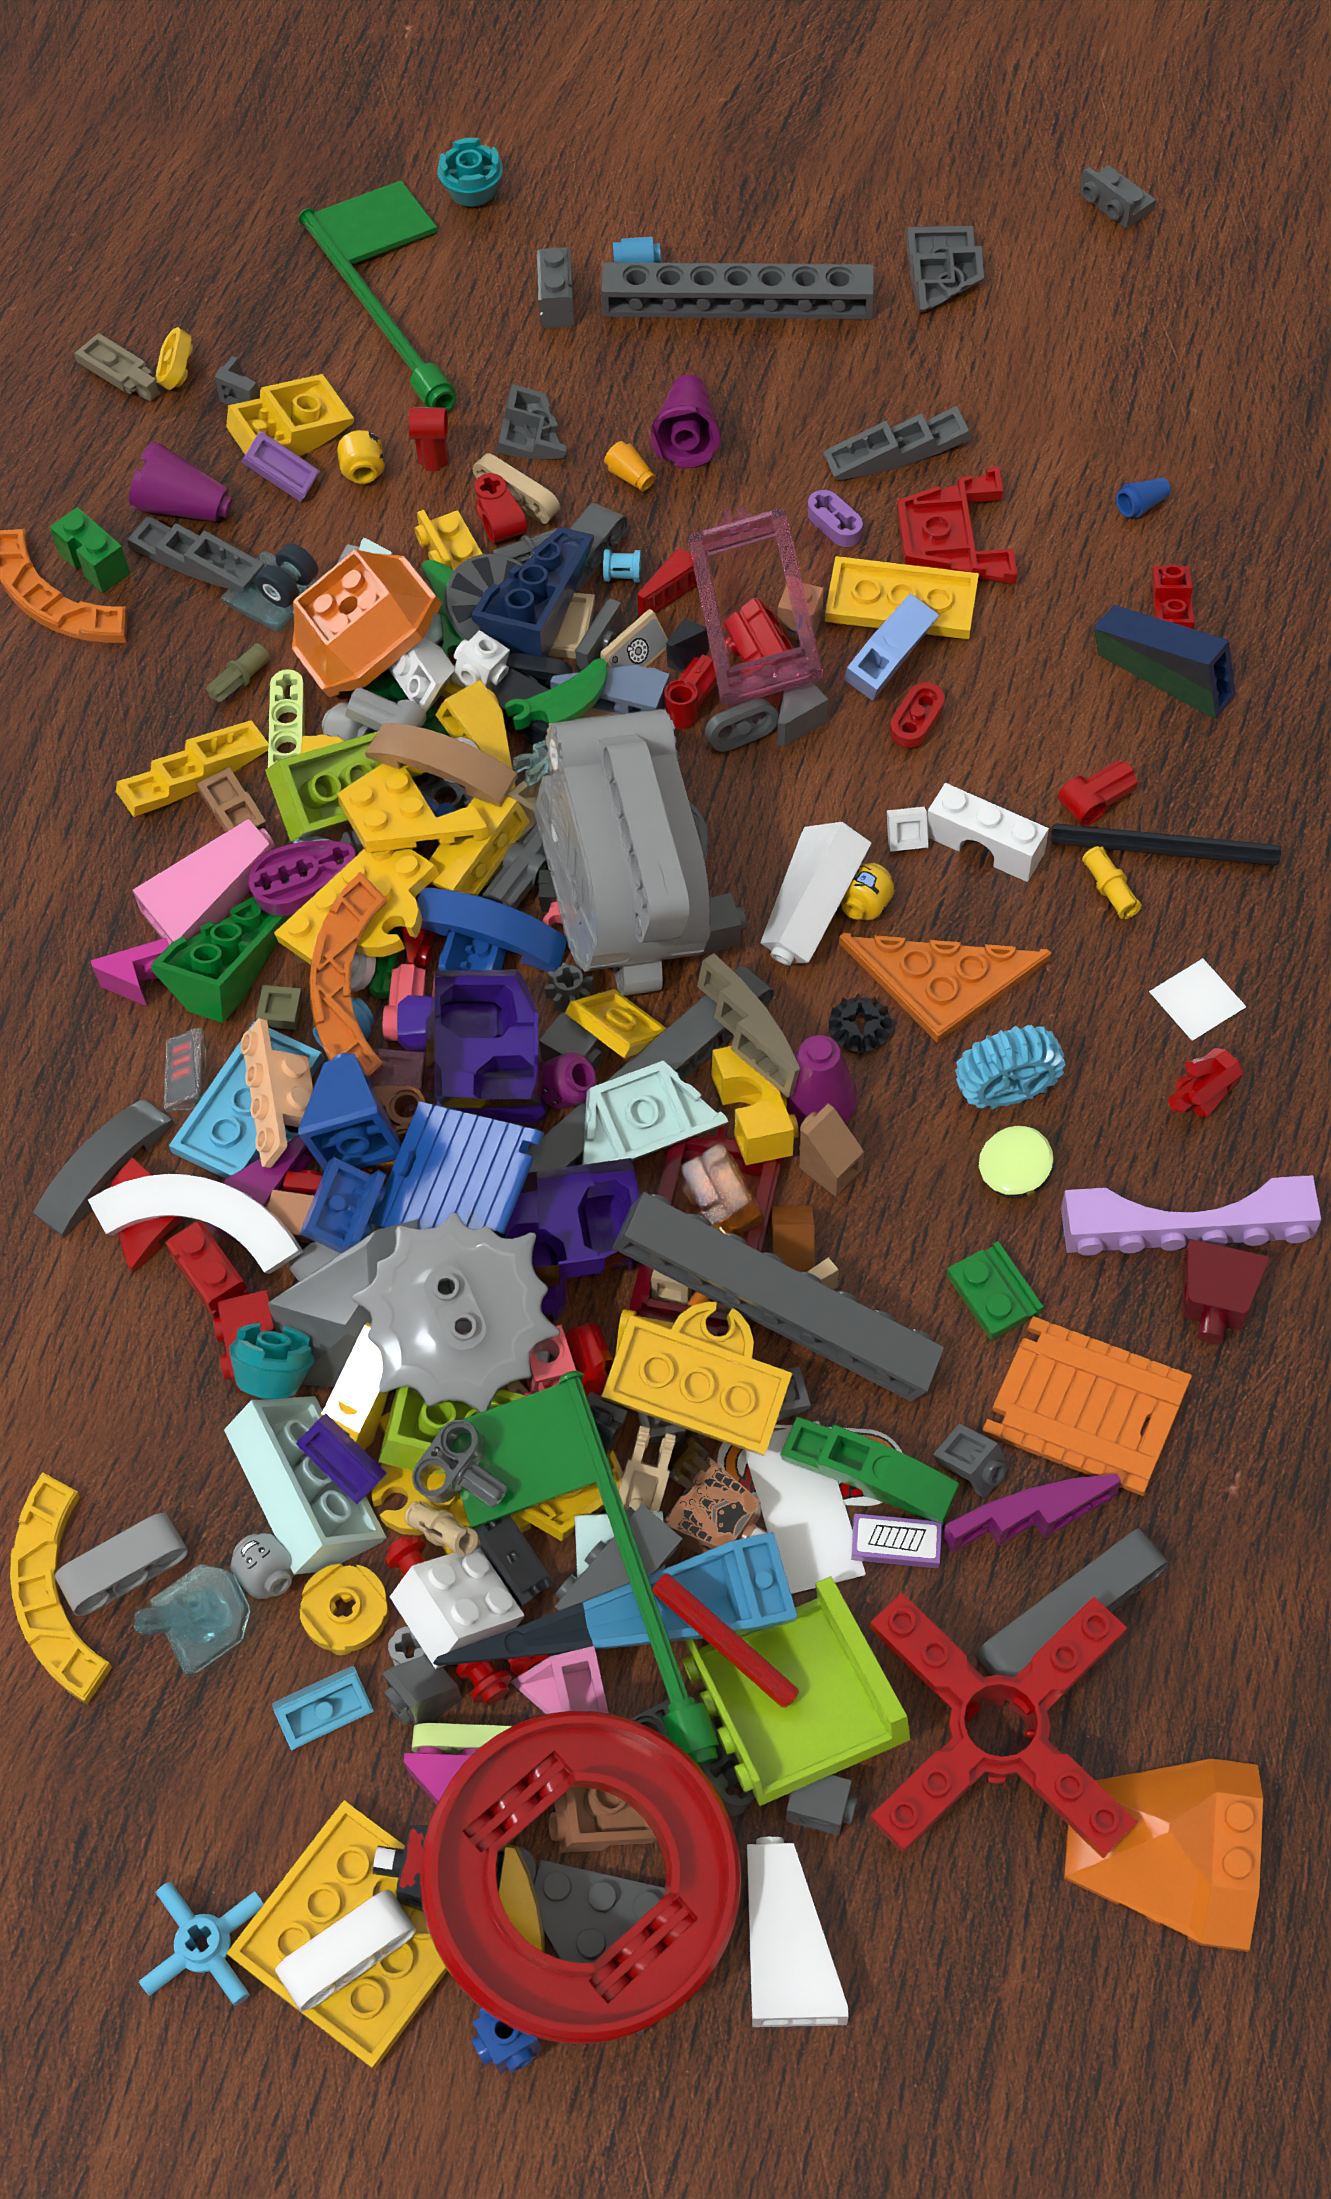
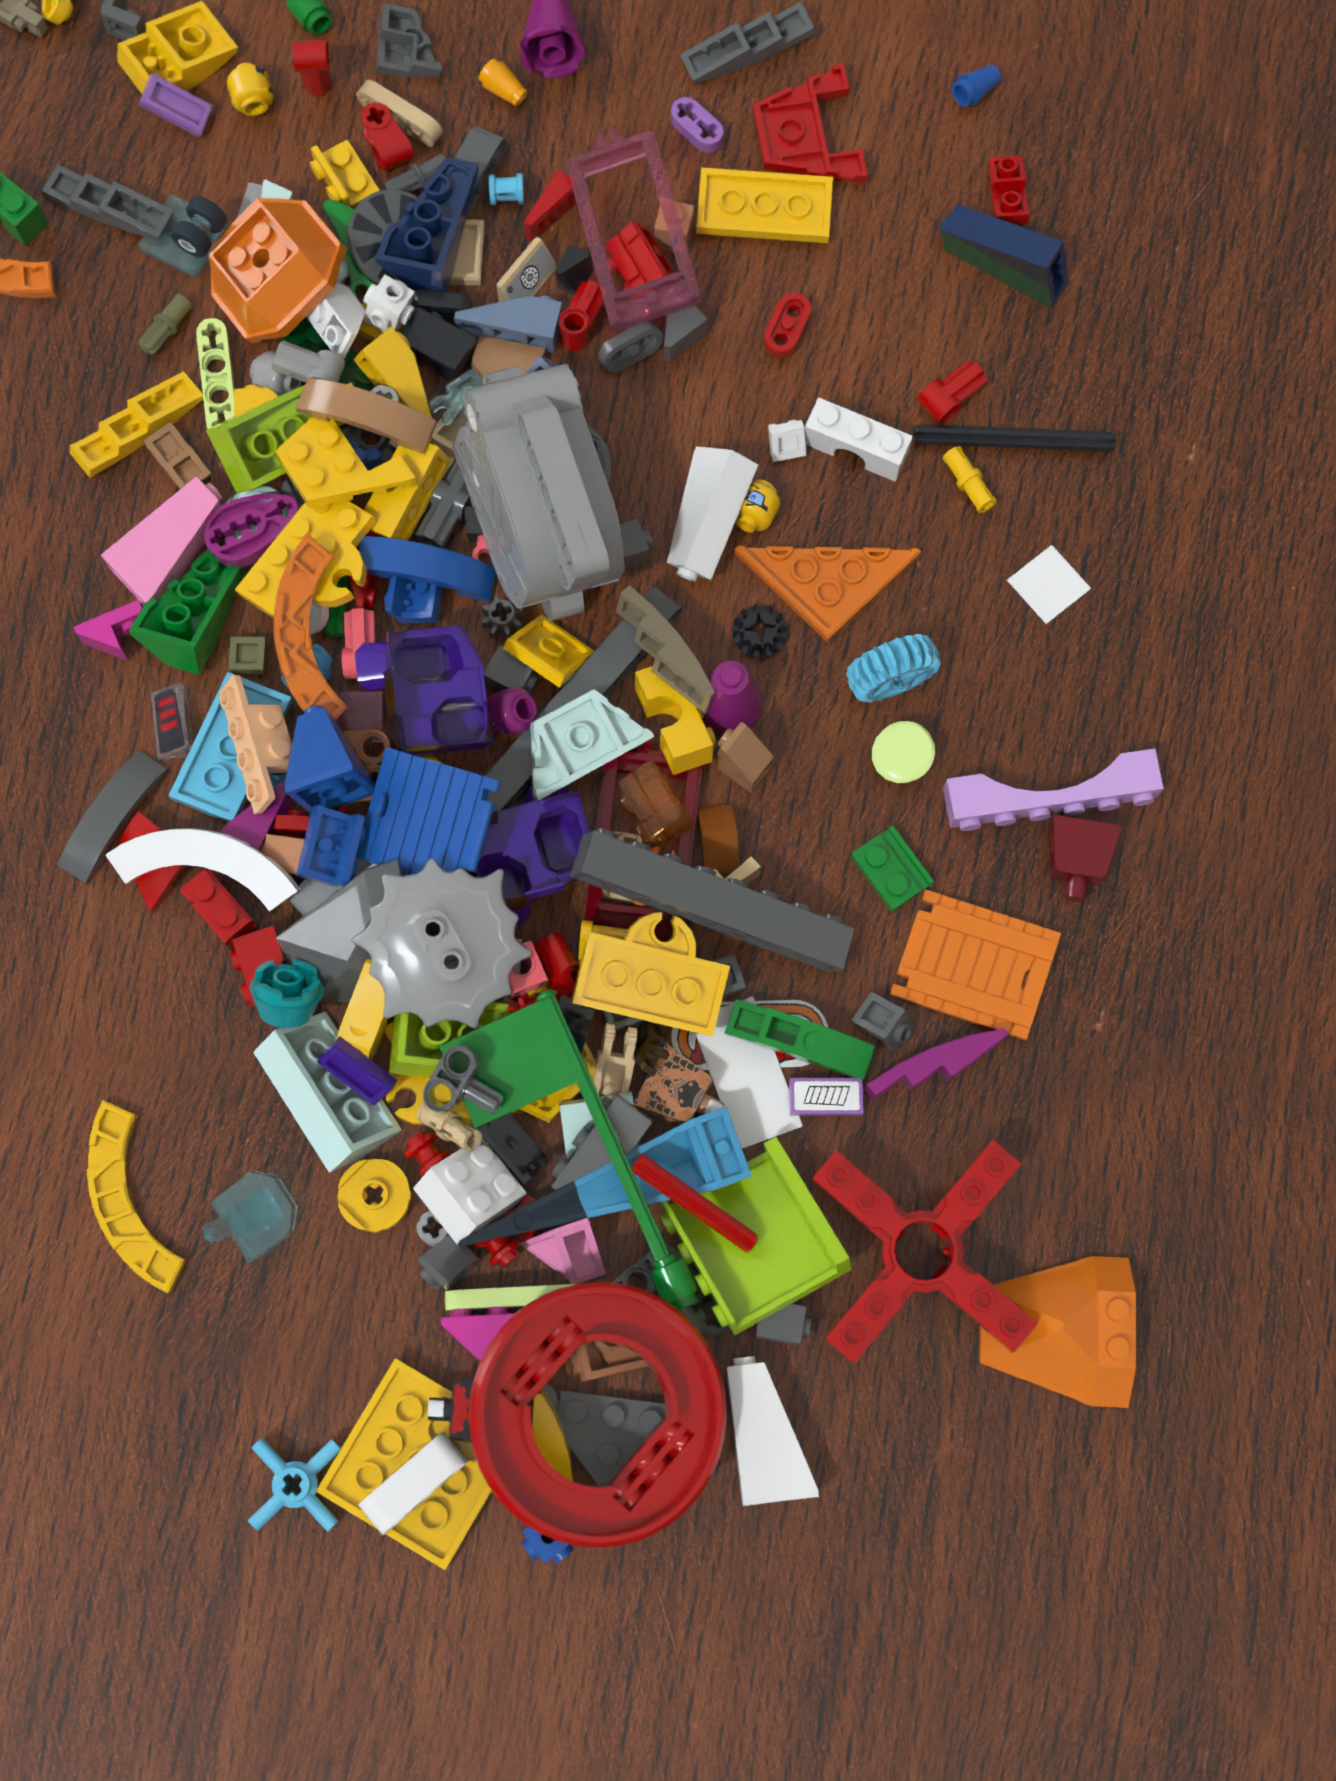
camera: 10 degrees left, 15 degrees up
(121, 1564) = (182, 1175): light grey beam -> none
(177, 487) = (81, 135): magenta cone -> none
(261, 1565) = (301, 1166): light grey head -> none
(322, 1707) = (366, 1279): medium azure slope -> none
(564, 701) = (469, 339): green piece -> none
(600, 634) = (493, 266): dark grey plate -> none
(890, 646) = (759, 259): light blue slope -> none
(1109, 1578) = (994, 1123): dark grey beam -> none
(1206, 1082) = (1060, 666): red rock -> none

